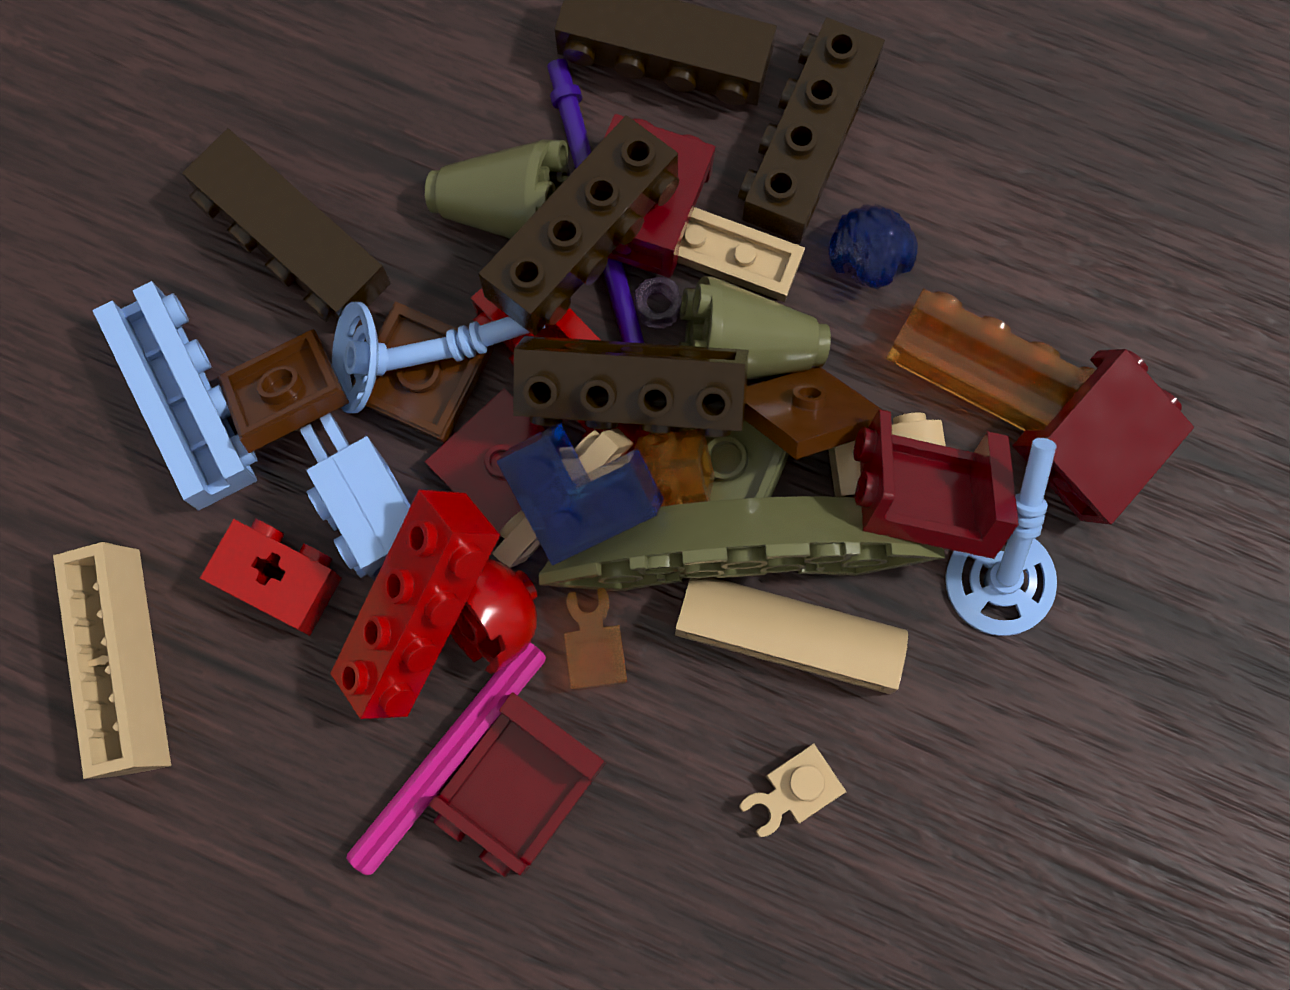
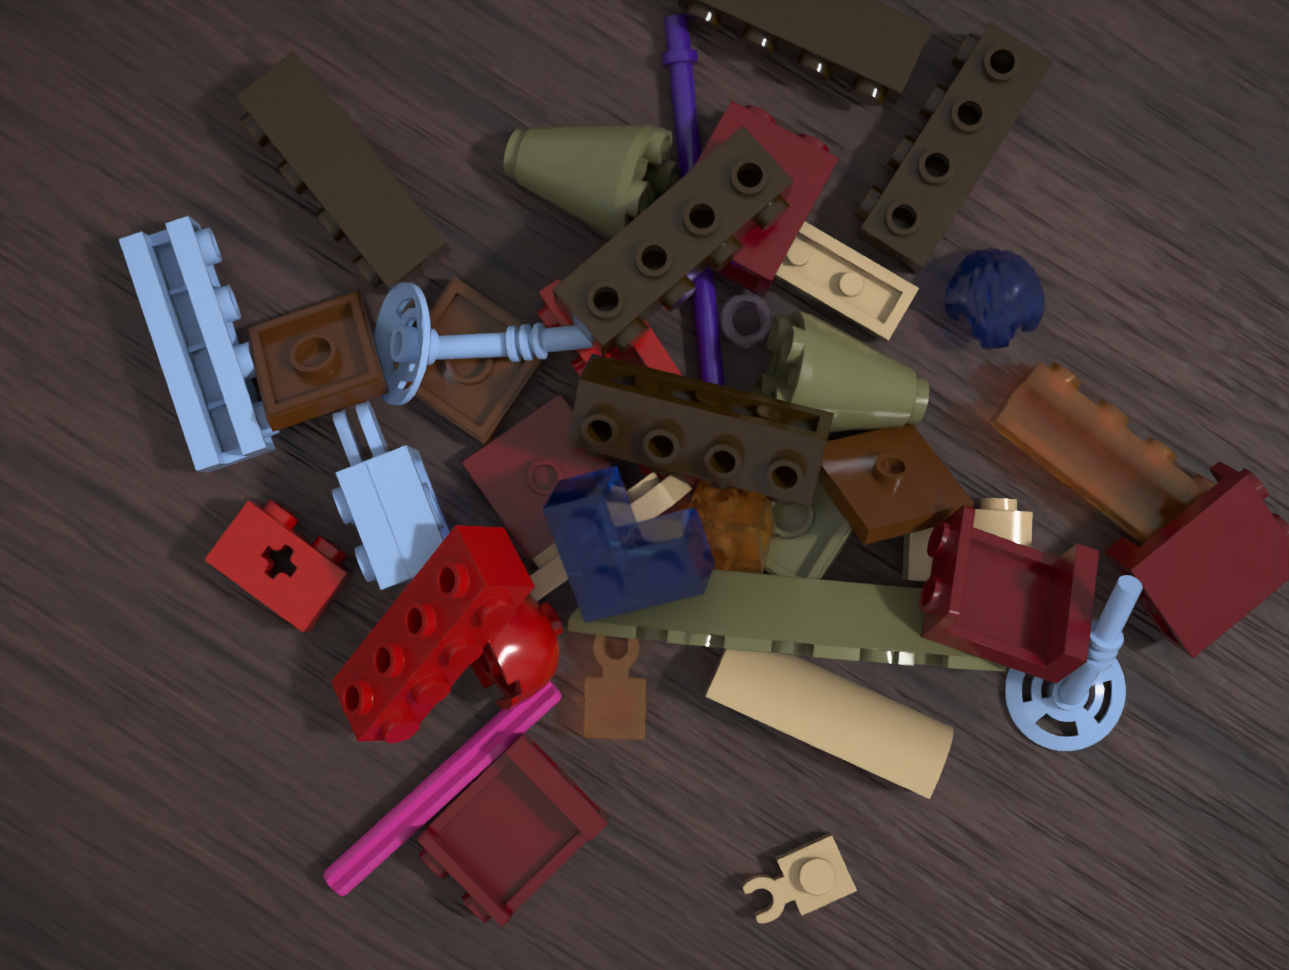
camera: 10 degrees right, 10 degrees up
(111, 661) = (98, 629): tan brick -> none

